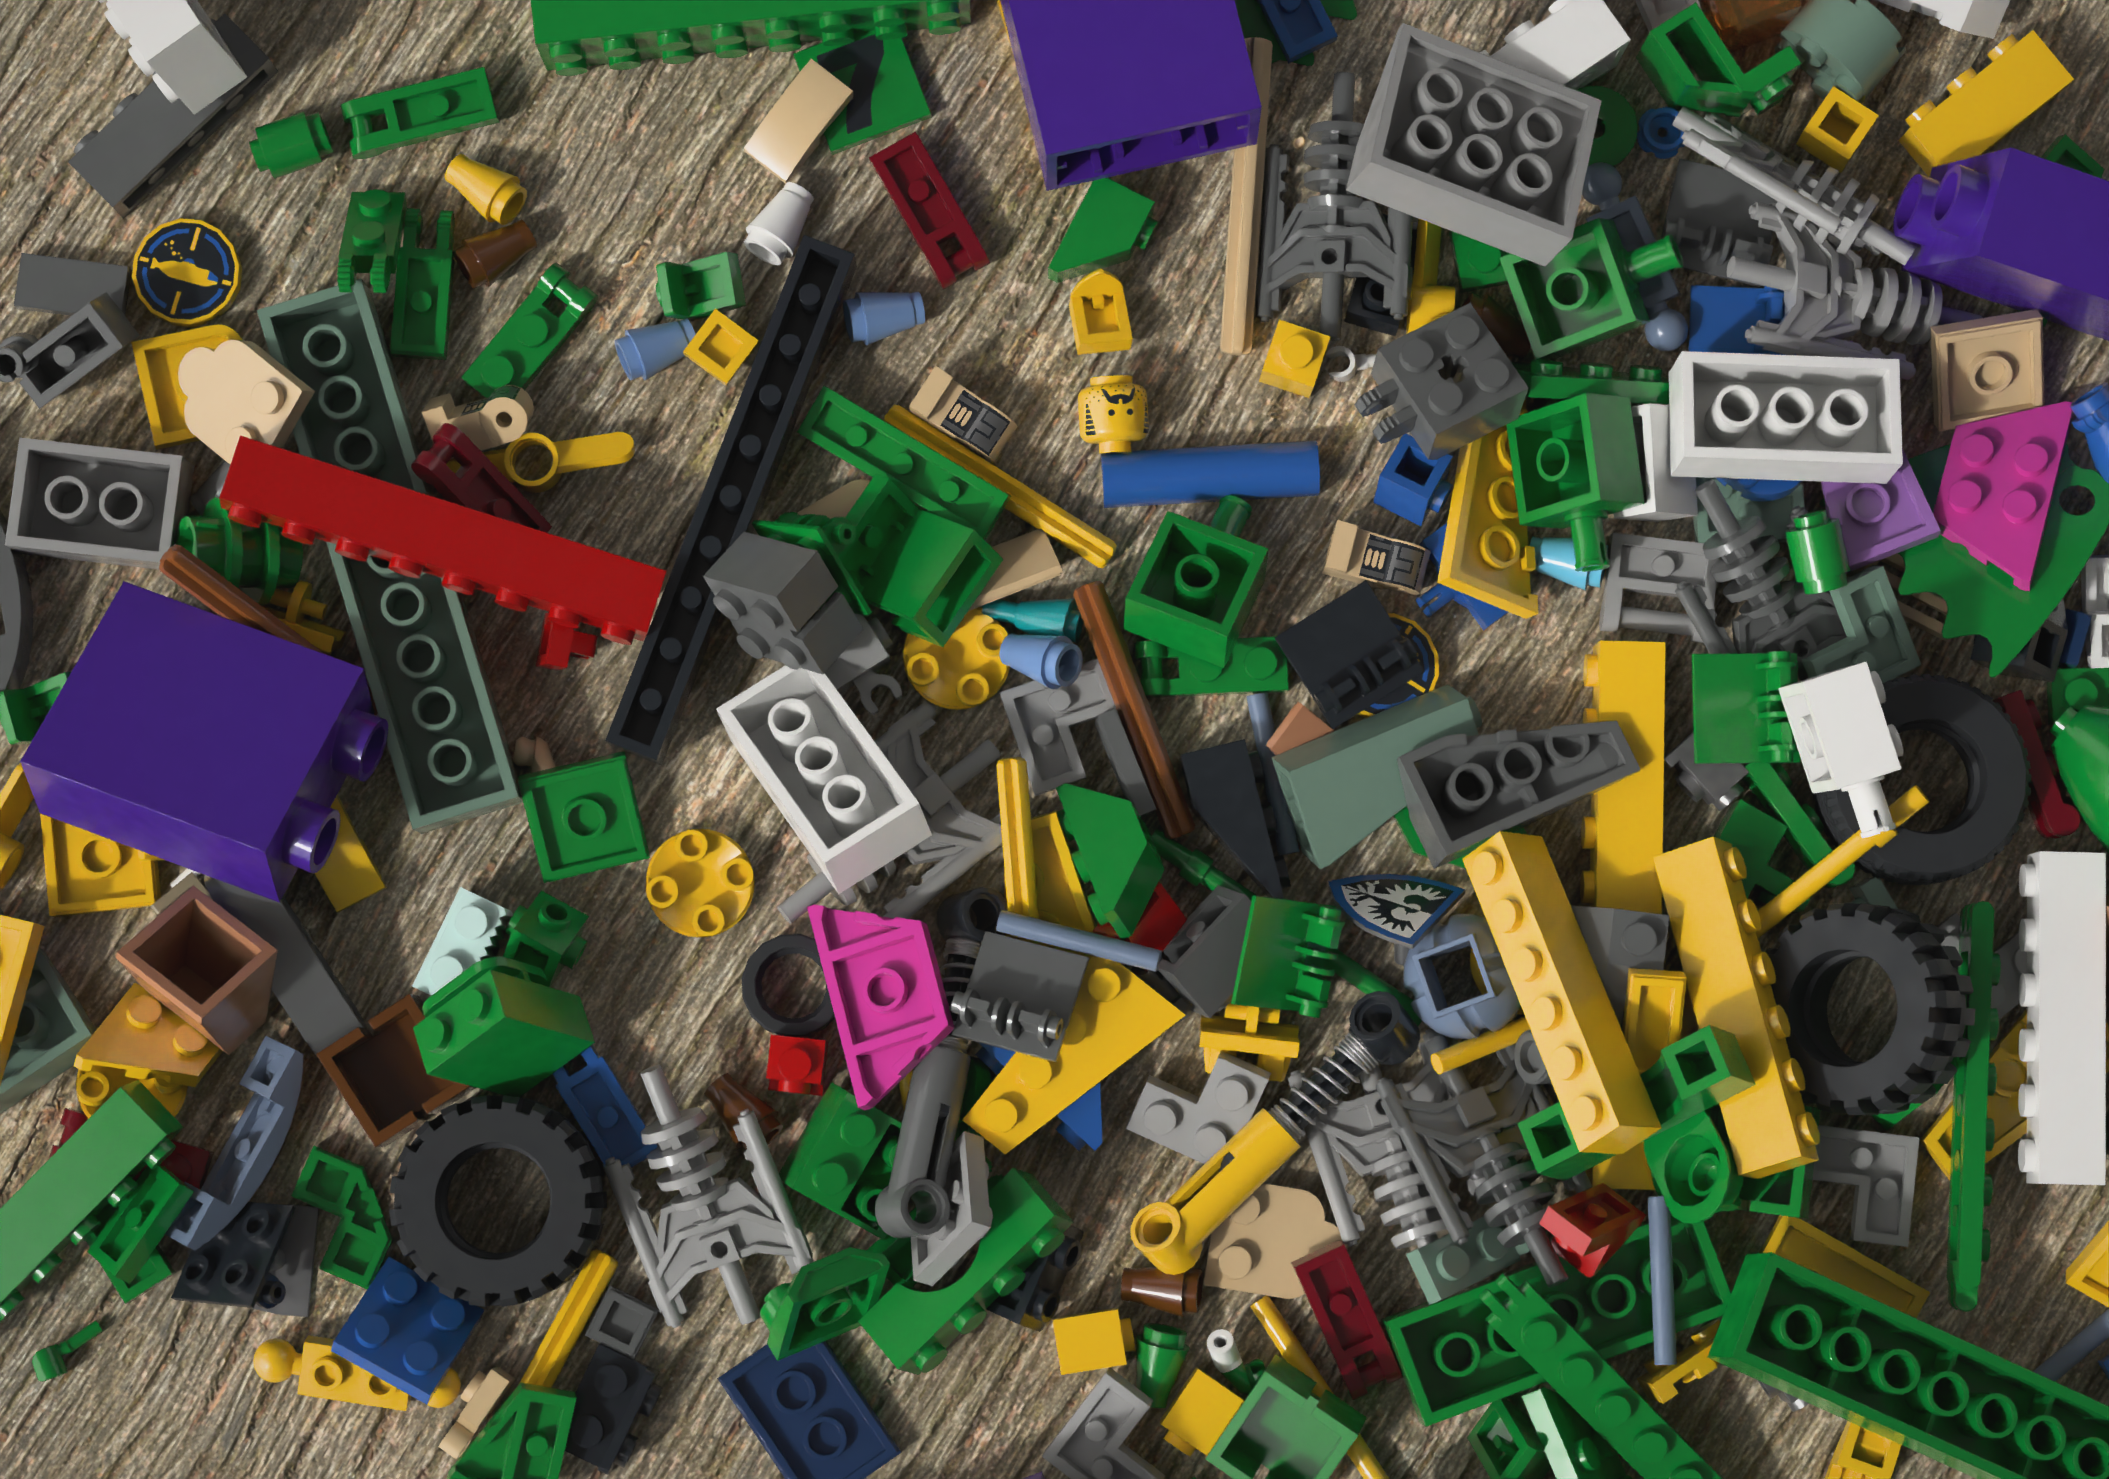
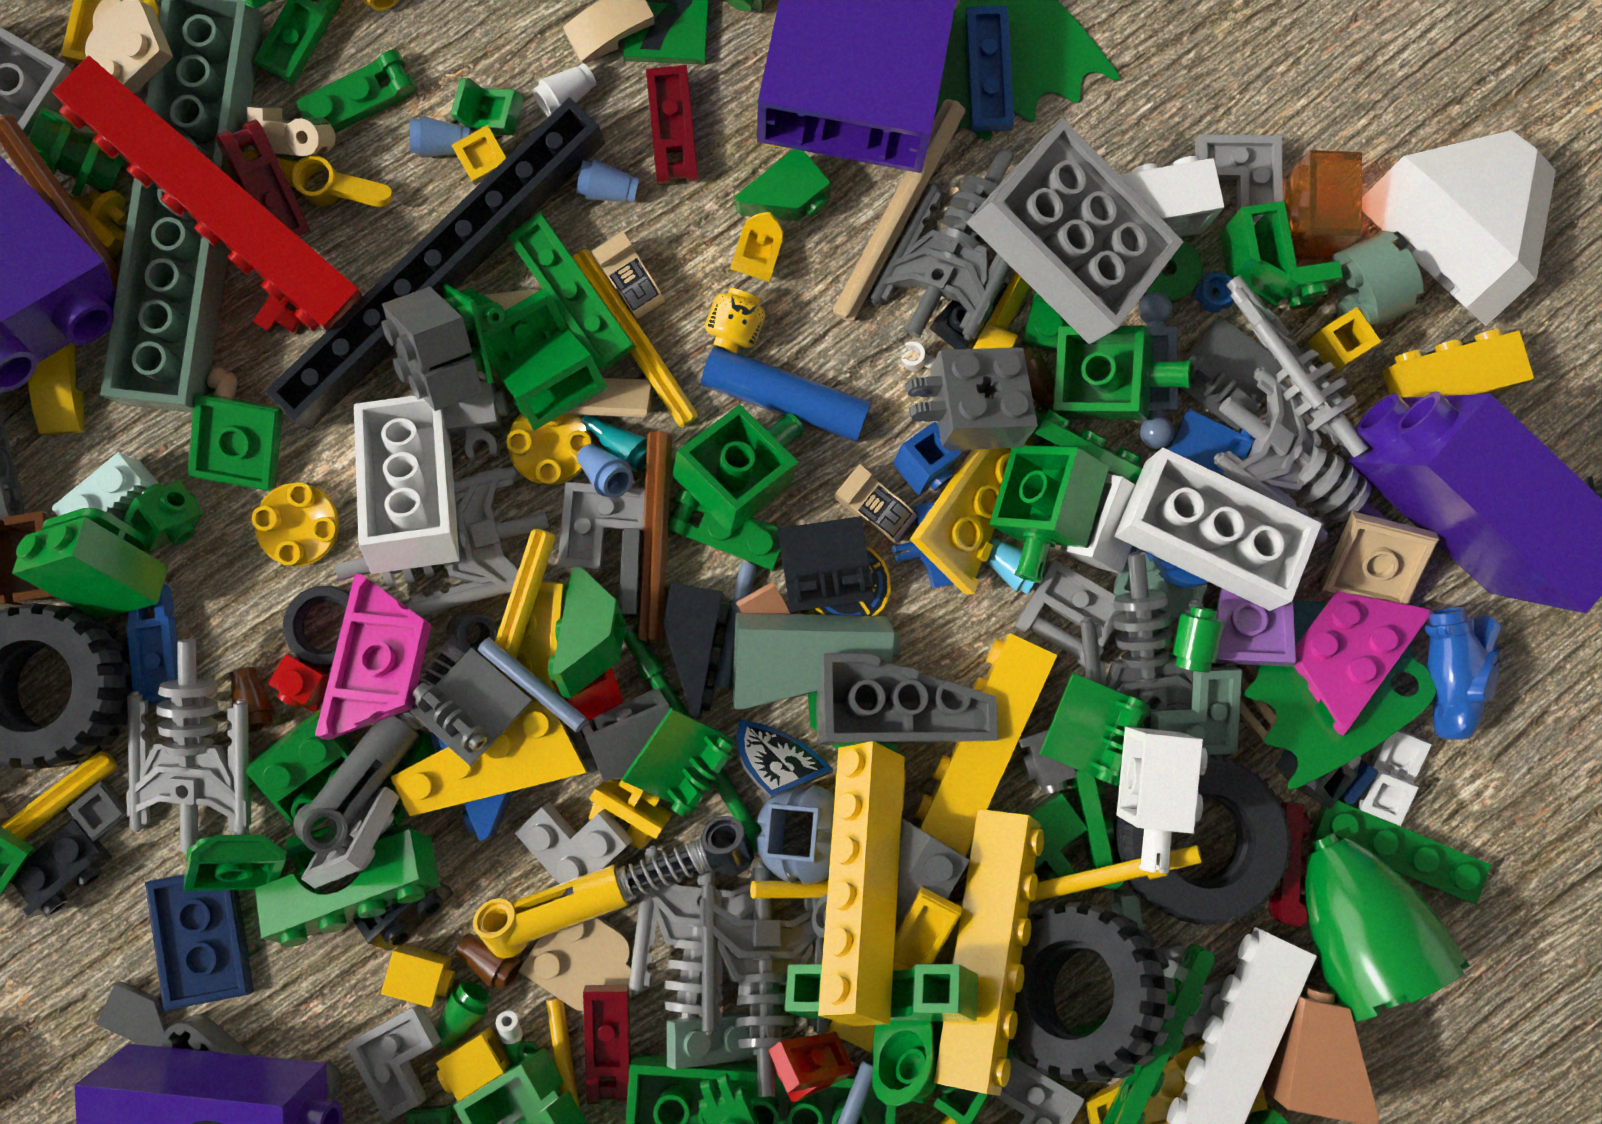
camera: 30 degrees right, 0 degrees up
(493, 253) = (357, 25): reddish brown cone -> none
(1294, 358) = (881, 337): yellow brick -> none

